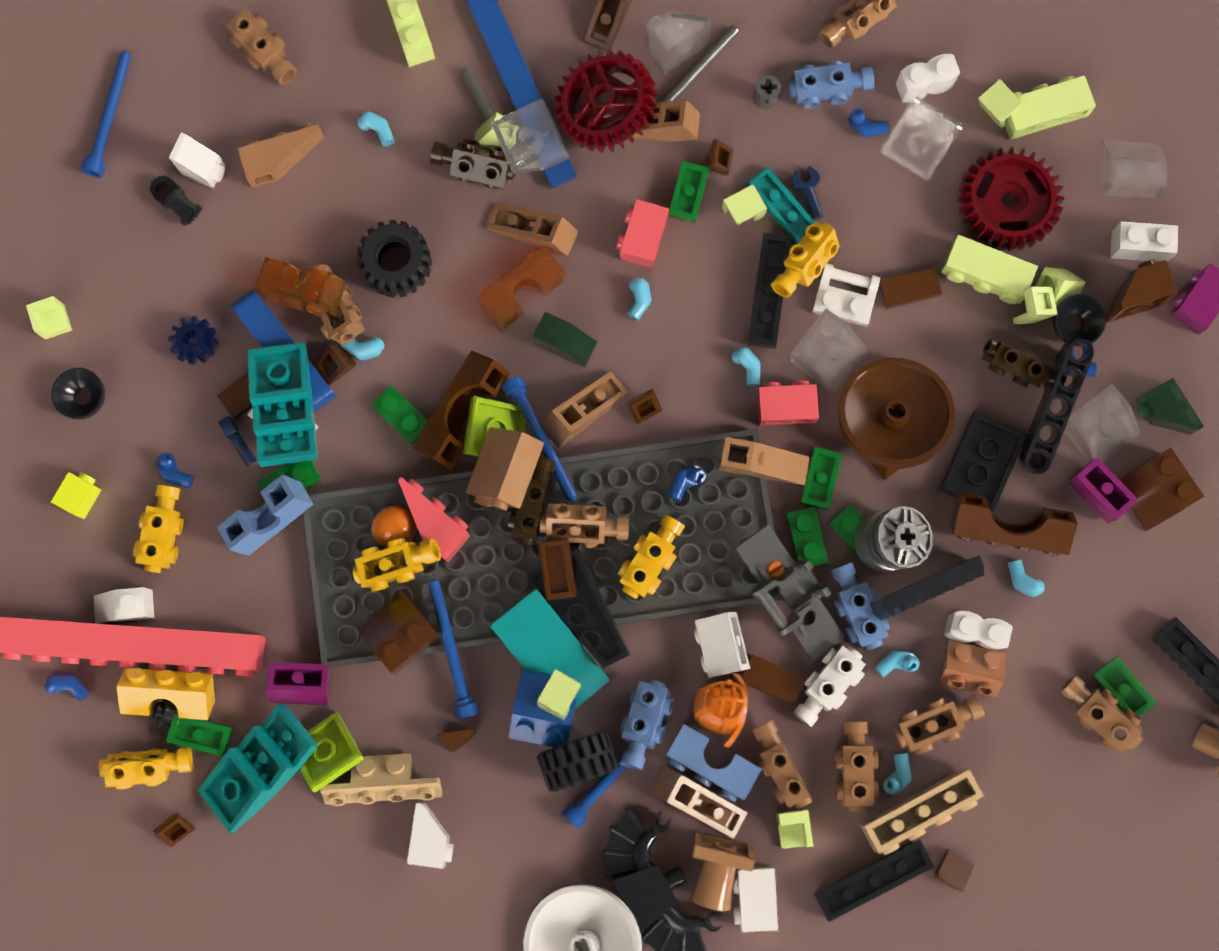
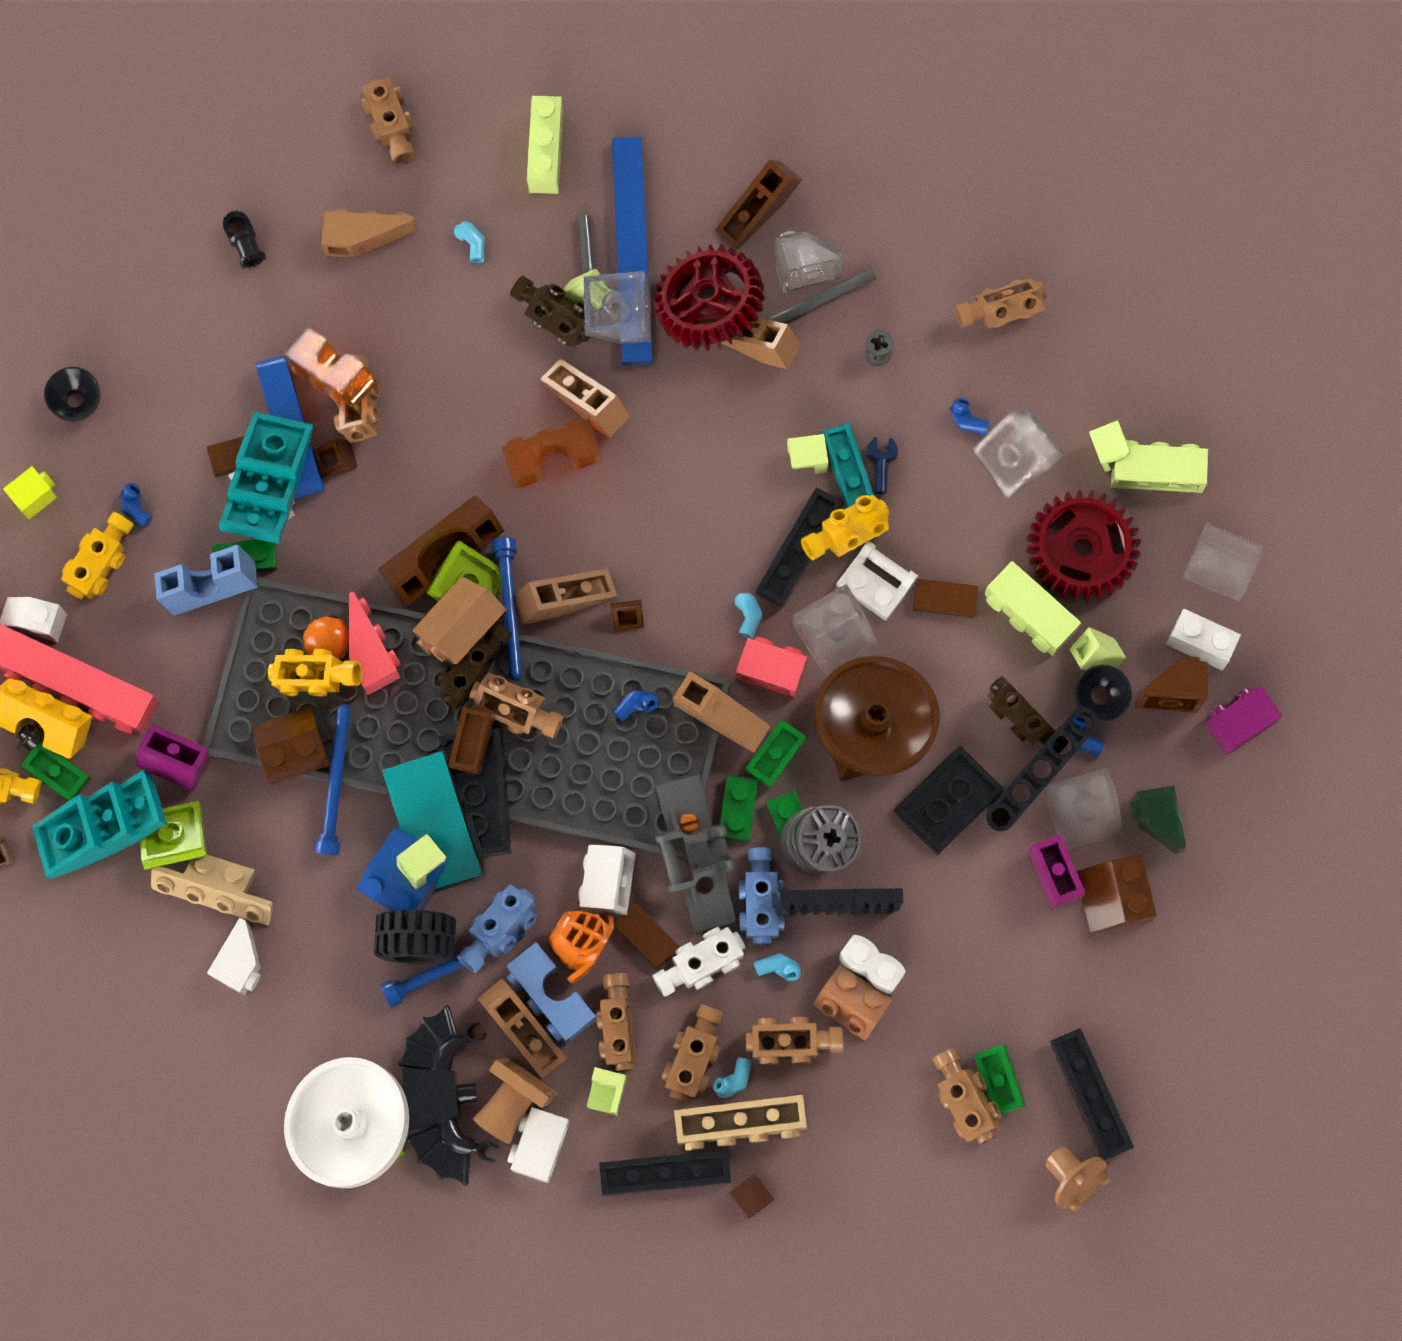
camera: 20 degrees right, 5 degrees down
(48, 317) = (73, 309): yellowish green panel -> none
(93, 164) = (178, 175): blue piece -> none
(194, 329) = (212, 374): clear blue gear -> none
(197, 161) = (279, 209): white slope -> none
(233, 434) = (207, 489): dark blue bar -> none
(364, 350) = (371, 455): medium azure arm -> none
(385, 238) = (429, 354): black tyre -> none
(400, 414) = (379, 532): green plate -> none
(456, 739) = (305, 872): reddish brown slope -> none
(564, 339) = (572, 519): clear green slope -> none
(642, 298) = (669, 506): medium azure arm -> none
(644, 233) = (695, 443): coral brick -> none
(648, 564) = (566, 773): yellow brick -> none
(688, 192) = (758, 419): green plate -> none
(719, 157) = (804, 396): reddish brown slope -> none
(825, 86) = (938, 364): medium blue brick -> none
(927, 78) = (1054, 394): white brick -> none
(1022, 582) = (940, 936): medium azure arm -> none
(1039, 305) = (1065, 663): yellowish green panel -> none
(1049, 531) = (916, 854): reddish brown arch -> none

